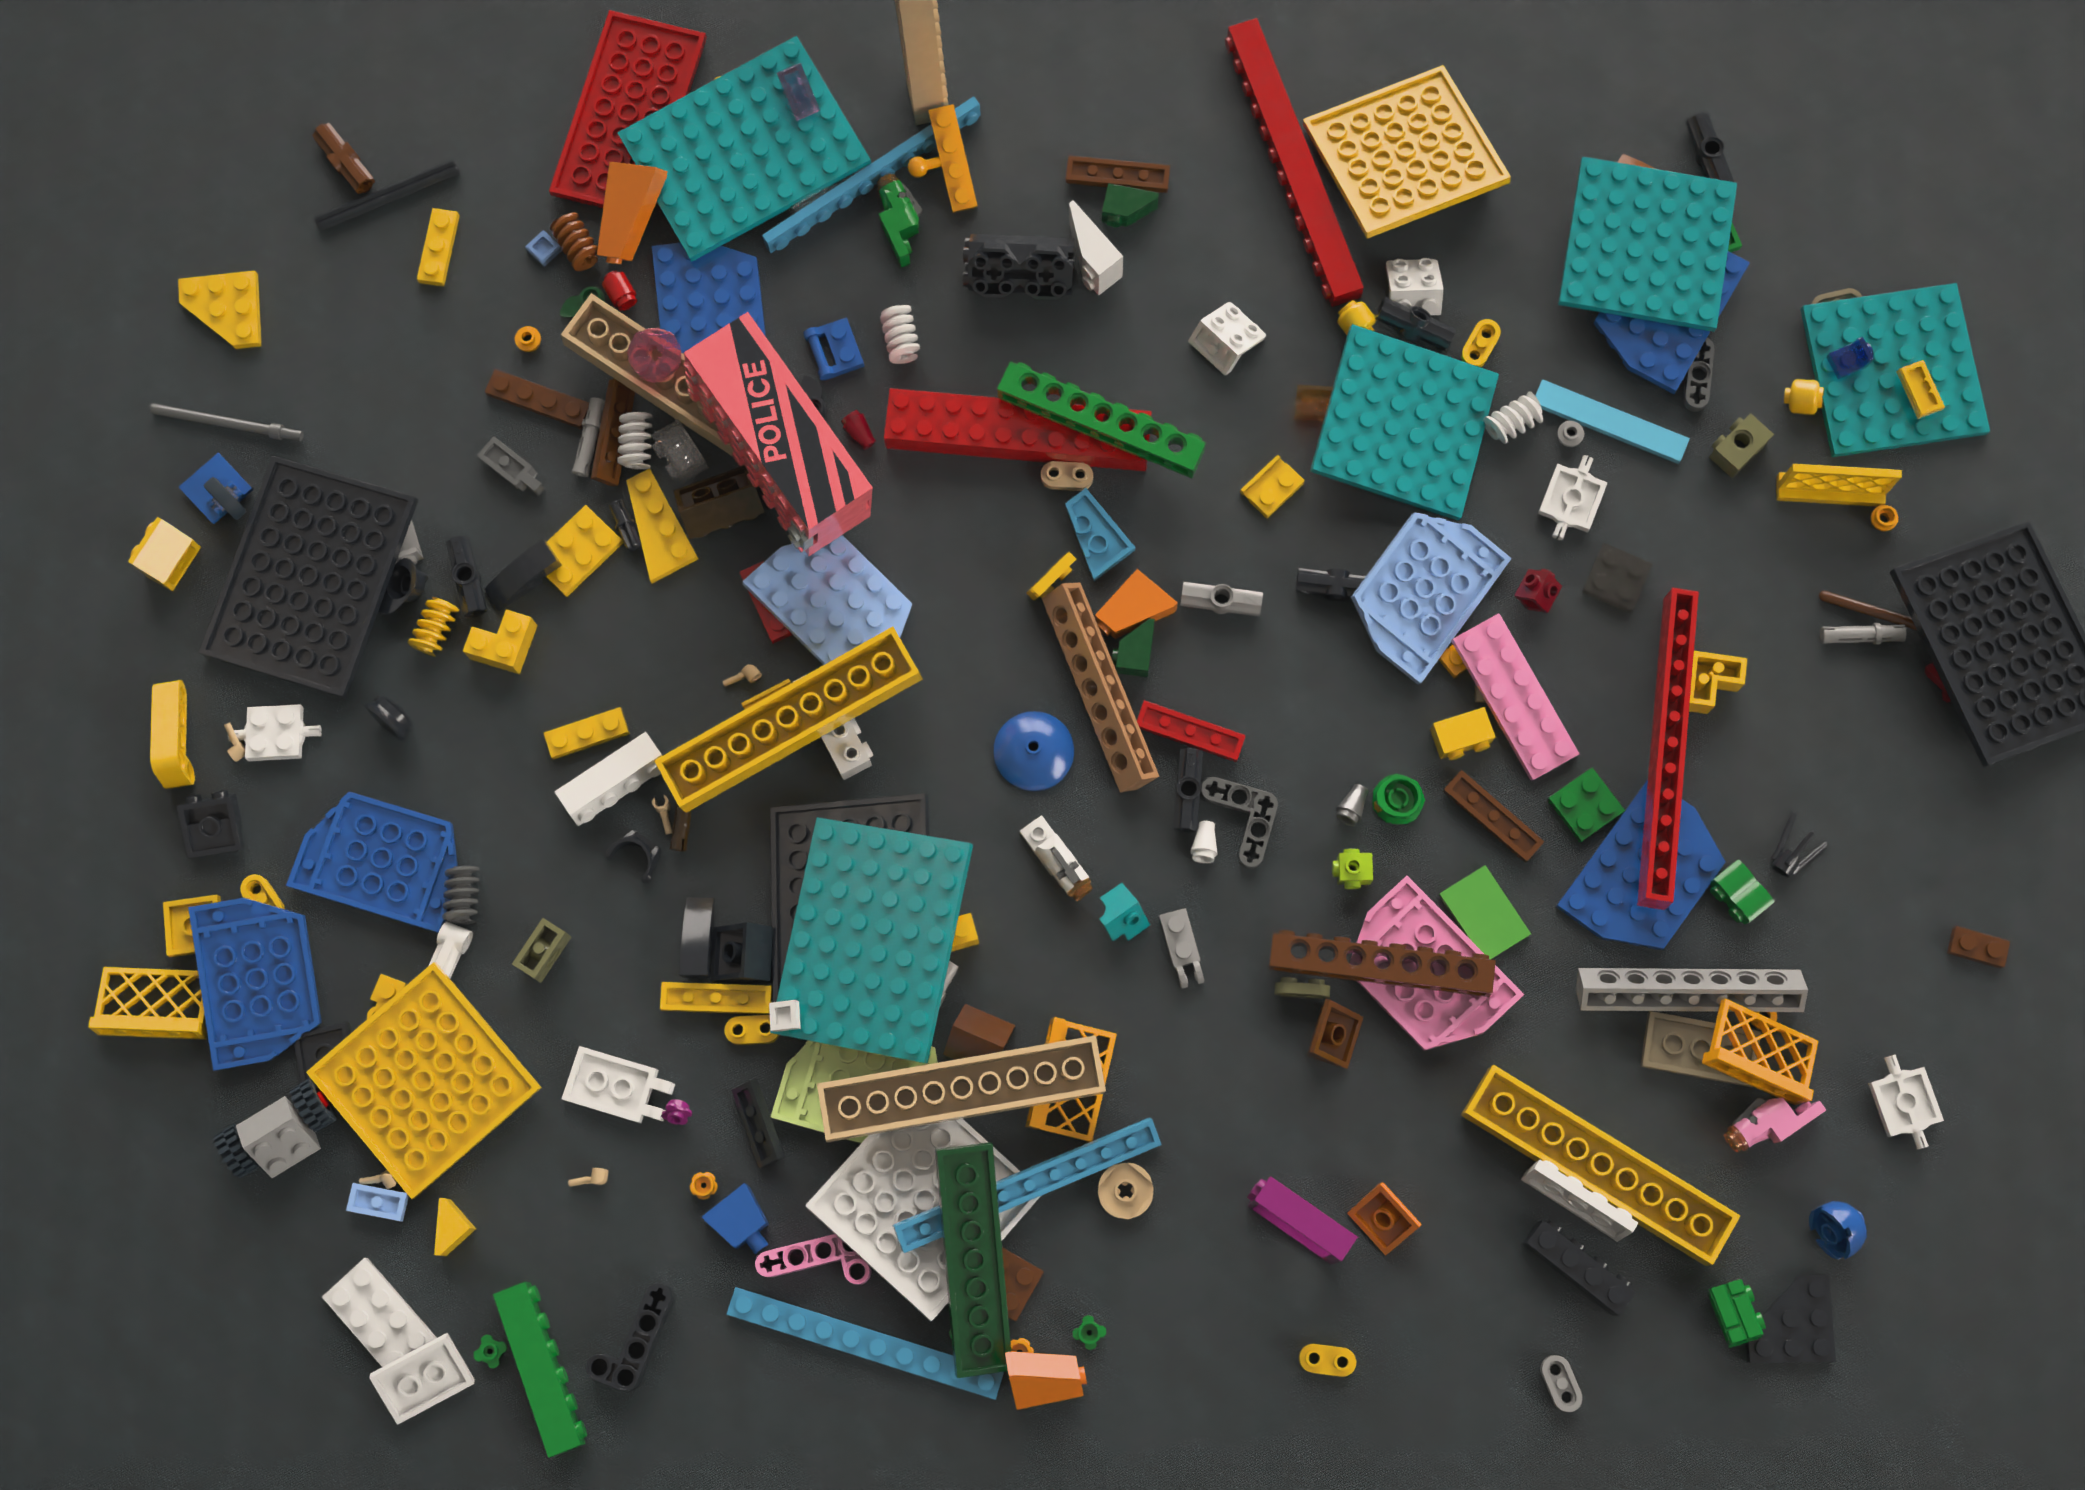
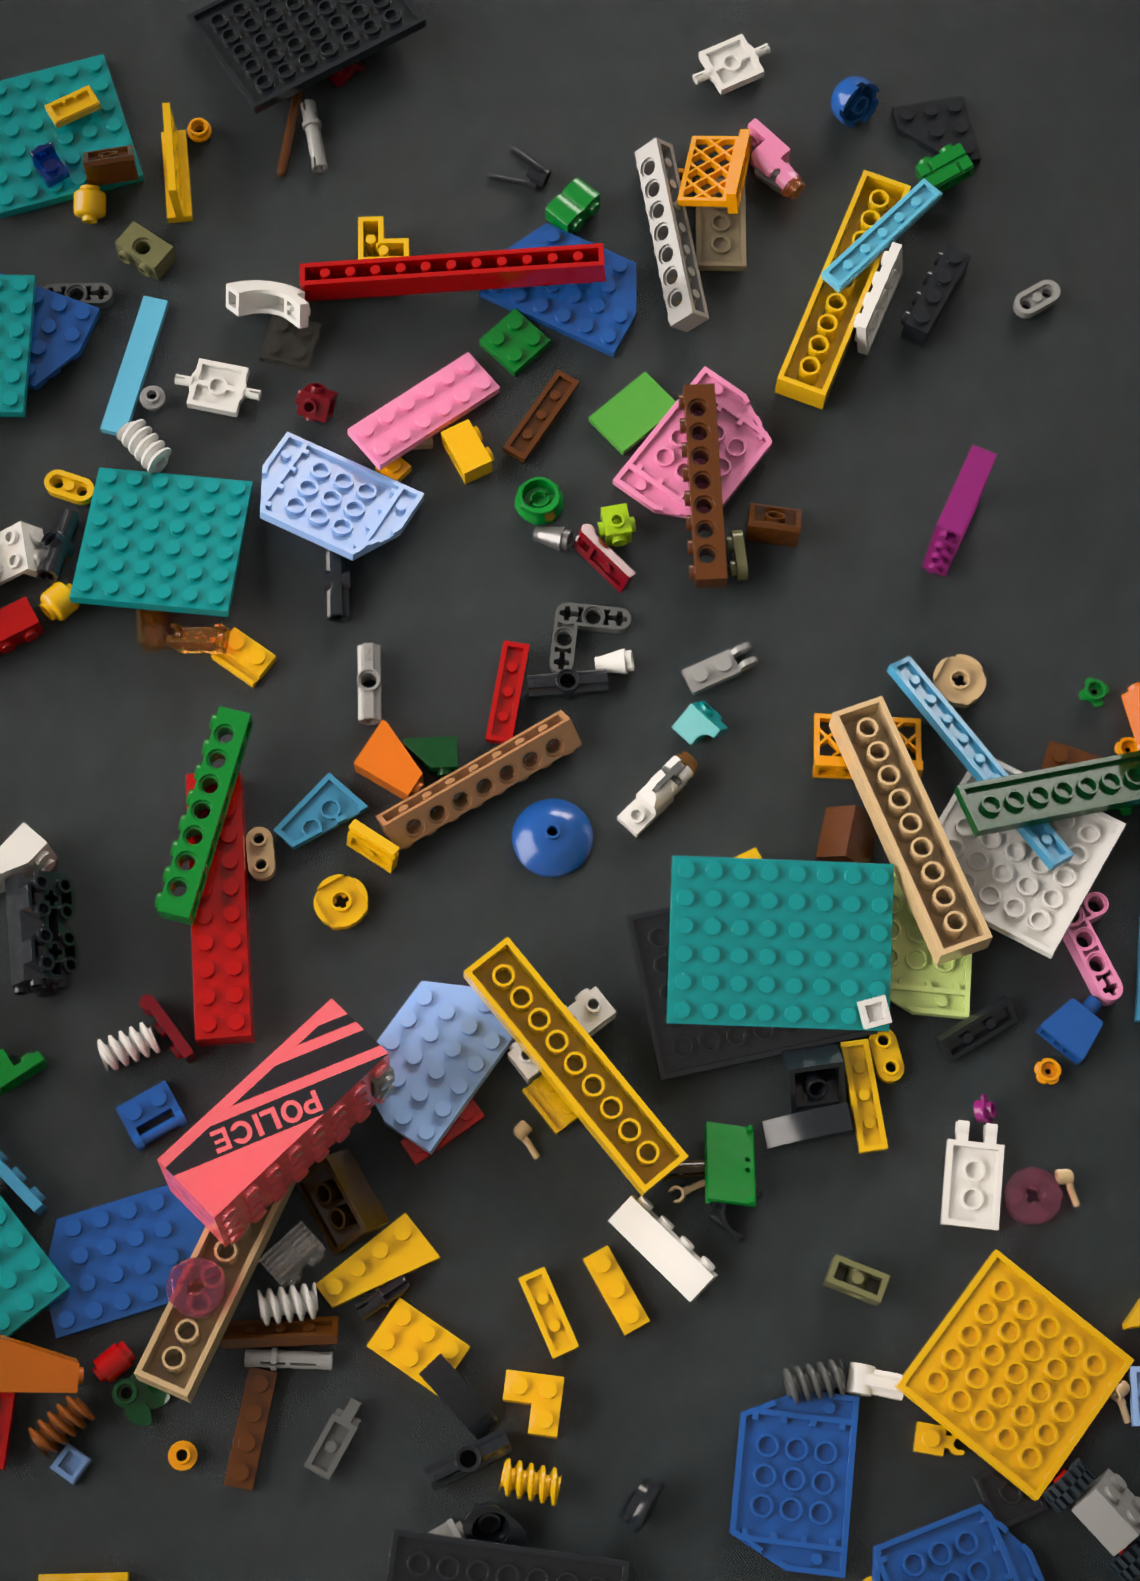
camera: 105 degrees left, 5 degrees down
(578, 668) = (548, 1313): none -> yellow plate
(603, 1141) = (1049, 1195): none -> clear pink plate
(675, 853) = (727, 1173): none -> green door
(858, 428) = (240, 1069): dark red cone -> none
(910, 370) = (167, 1028): none -> dark red plate
(1010, 528) = (346, 887): none -> yellow plate
(1225, 337) = (92, 722): white bracket -> none
(1296, 445) = (199, 639): none -> clear orange hinge
(1320, 849) = (603, 558): none -> dark red plate
(1327, 1360) = (1065, 486): yellow plate -> none
(1384, 1218) = (930, 456): orange slope -> none
(1652, 1216) = (881, 235): none -> medium azure tile
(1668, 559) = (268, 297): none -> white arch
(1846, 418) = (110, 165): none -> reddish brown slope
(1978, 947) = (583, 24): reddish brown plate -> none

